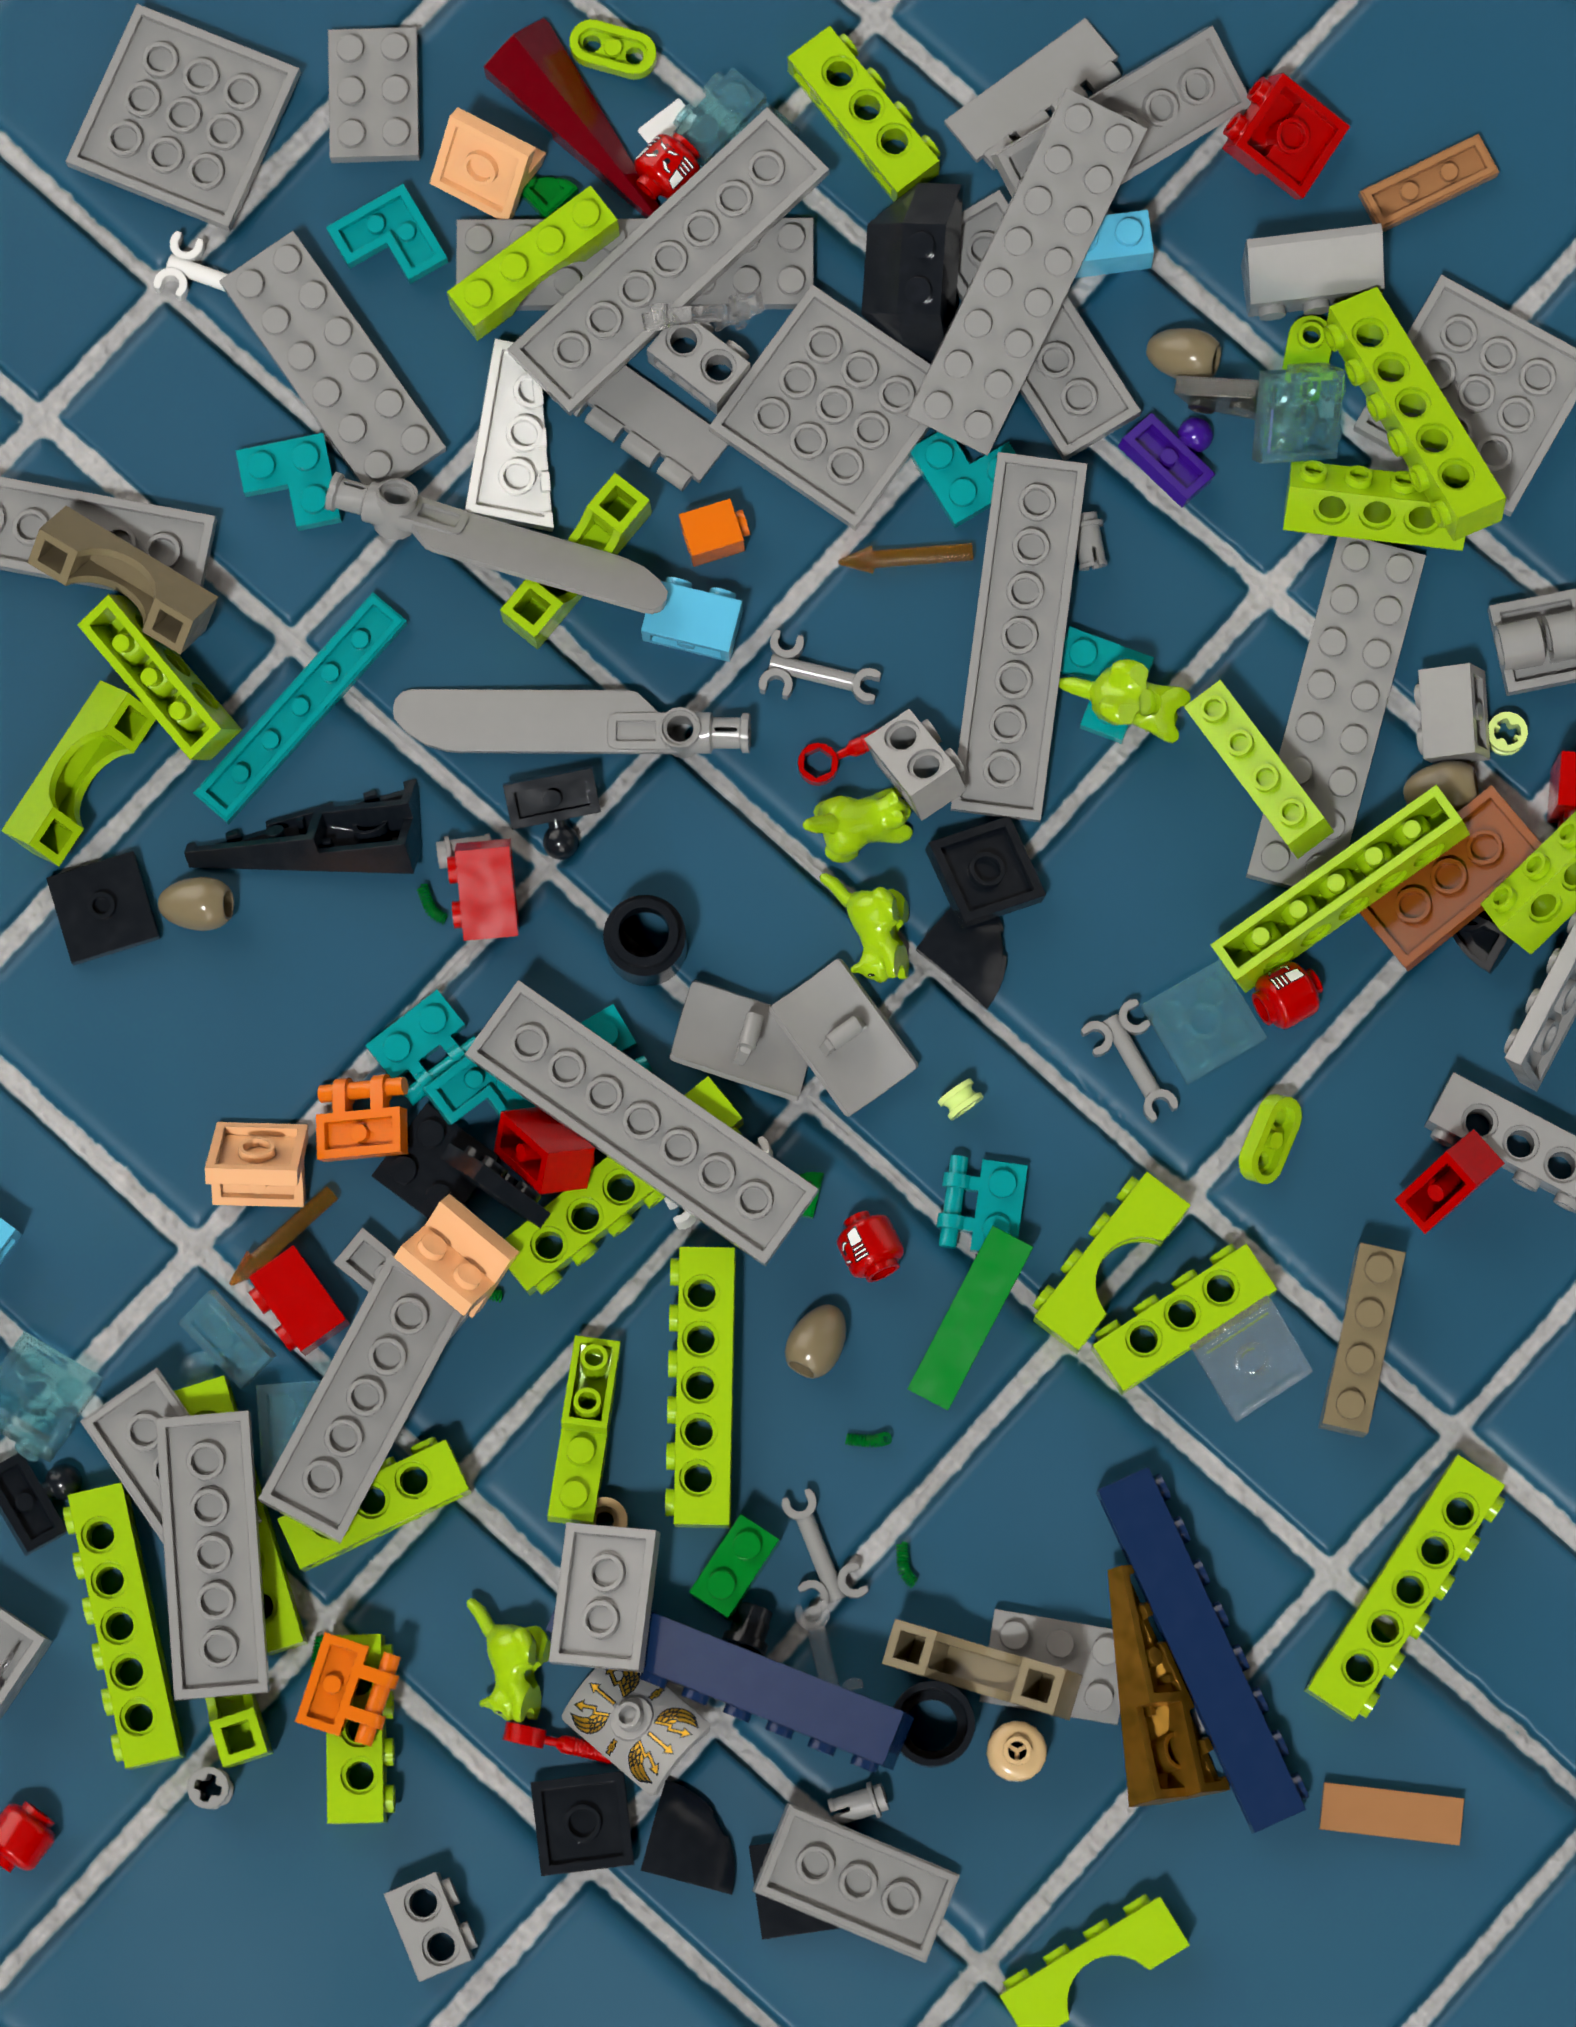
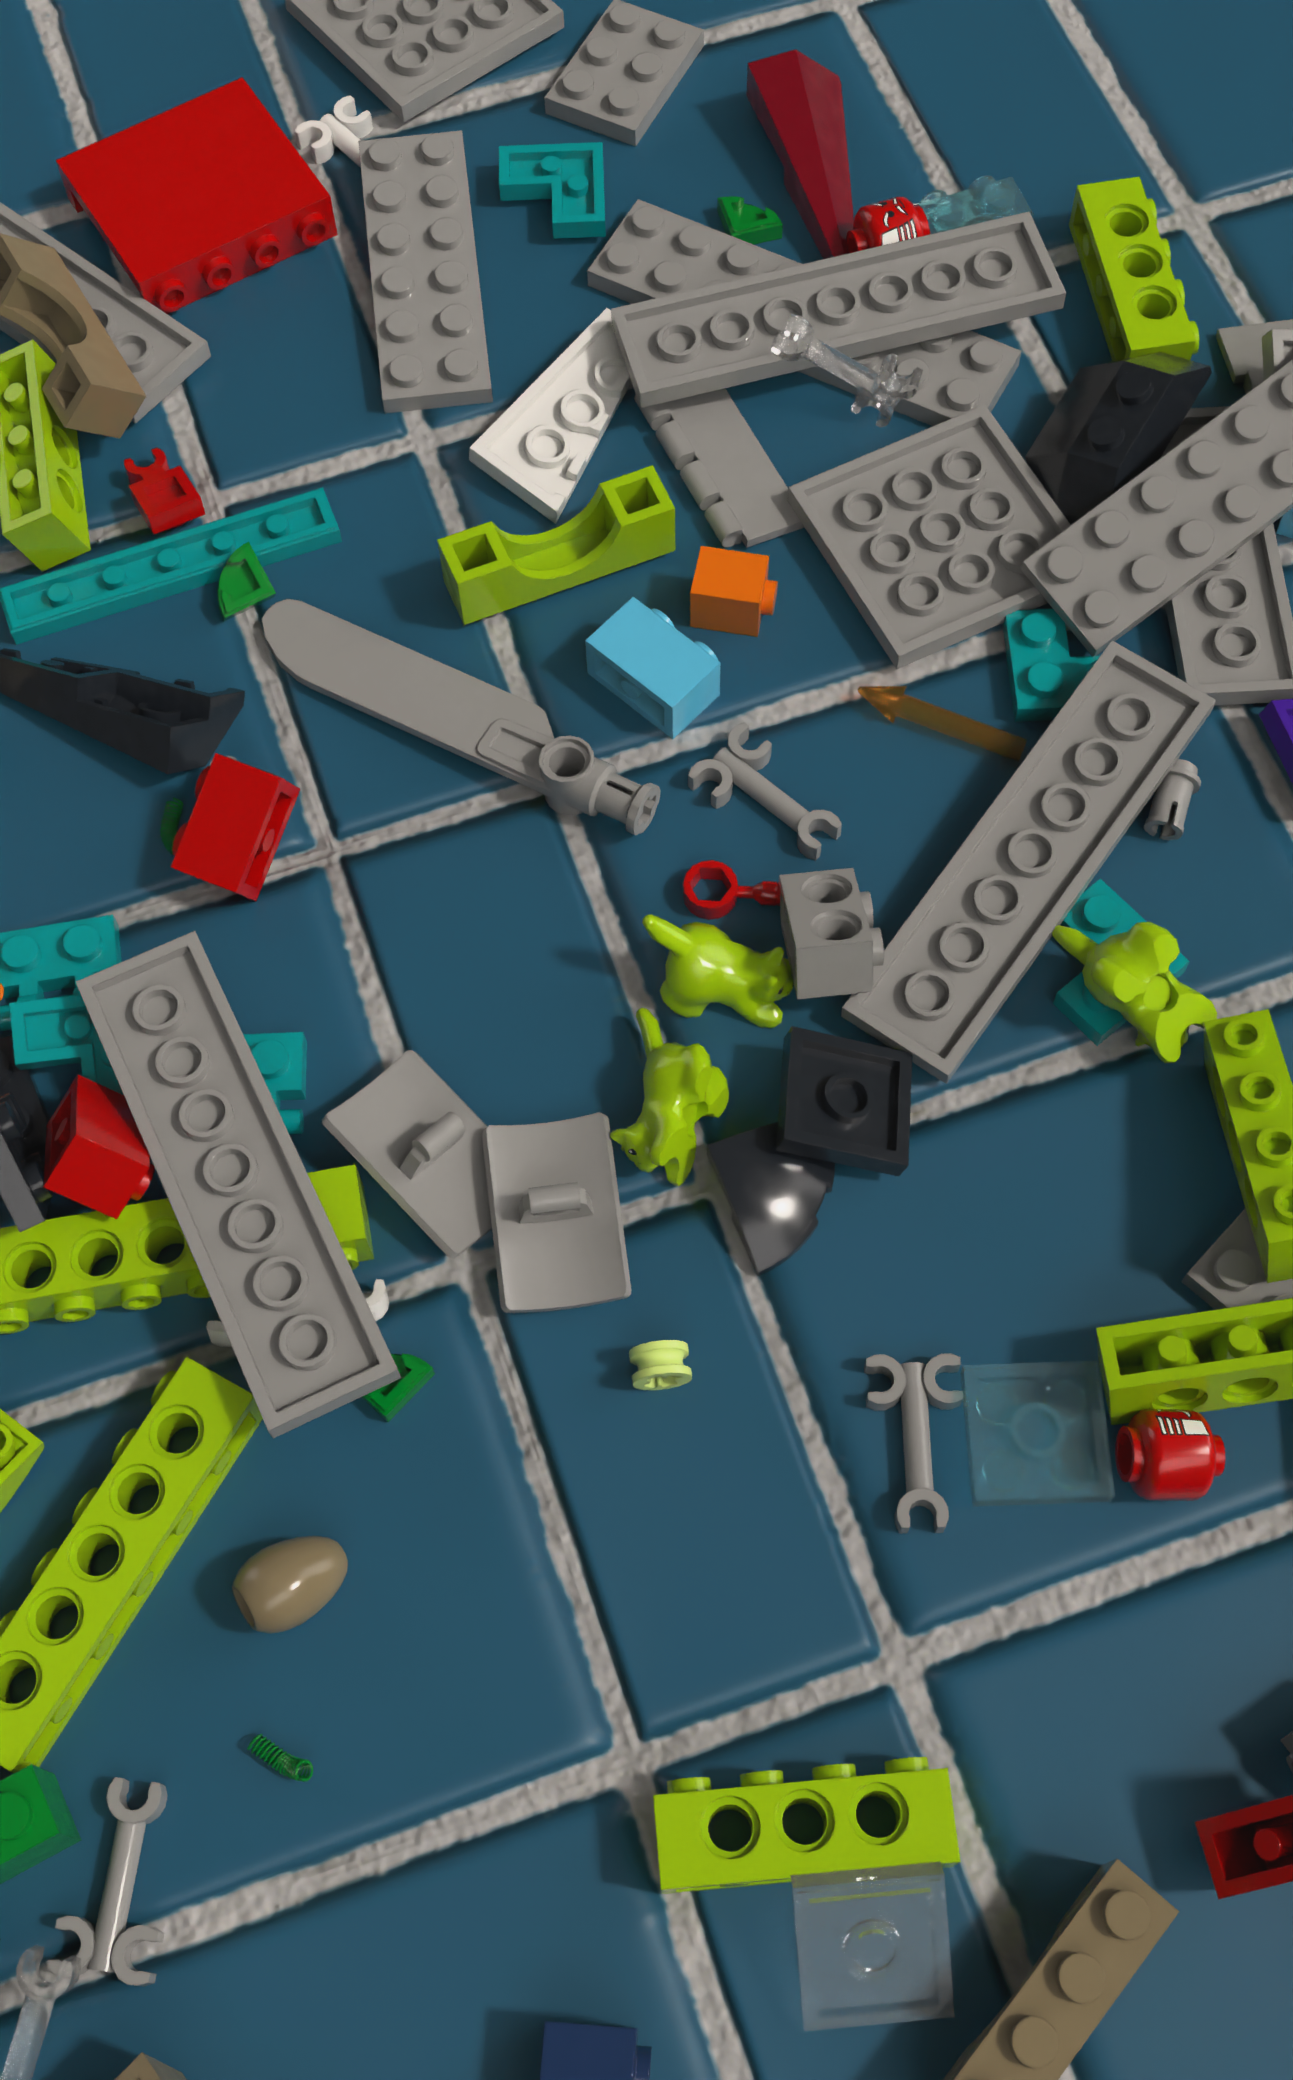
camera: 25 degrees right, 15 degrees down
(123, 388) = (199, 196): none -> red panel
(262, 659) = (163, 494): none -> red plate
(294, 465) = (327, 351): teal plate -> none
(364, 699) = (242, 583): none -> green tile
(484, 165) = (698, 152): light nougat bracket -> none
(496, 545) = (397, 417): light grey piece -> none
(552, 801) = (376, 778): black plate -> none
(563, 238) = (631, 246): lime arch -> none
(615, 47) = (893, 124): lime plate -> none
(651, 969) = (387, 1006): black piece -> none
(691, 368) = (813, 419): light grey brick -> none
(870, 1246) = (433, 1493): red head -> none
(903, 1555) = (223, 1975): green leg -> none
(970, 1317) = (509, 1664): green tile -> none
(998, 1200) = (631, 1535): teal plate -> none
(1145, 1216) = (824, 1651): lime arch -> none
(1270, 1139) = (1052, 1638): lime plate -> none

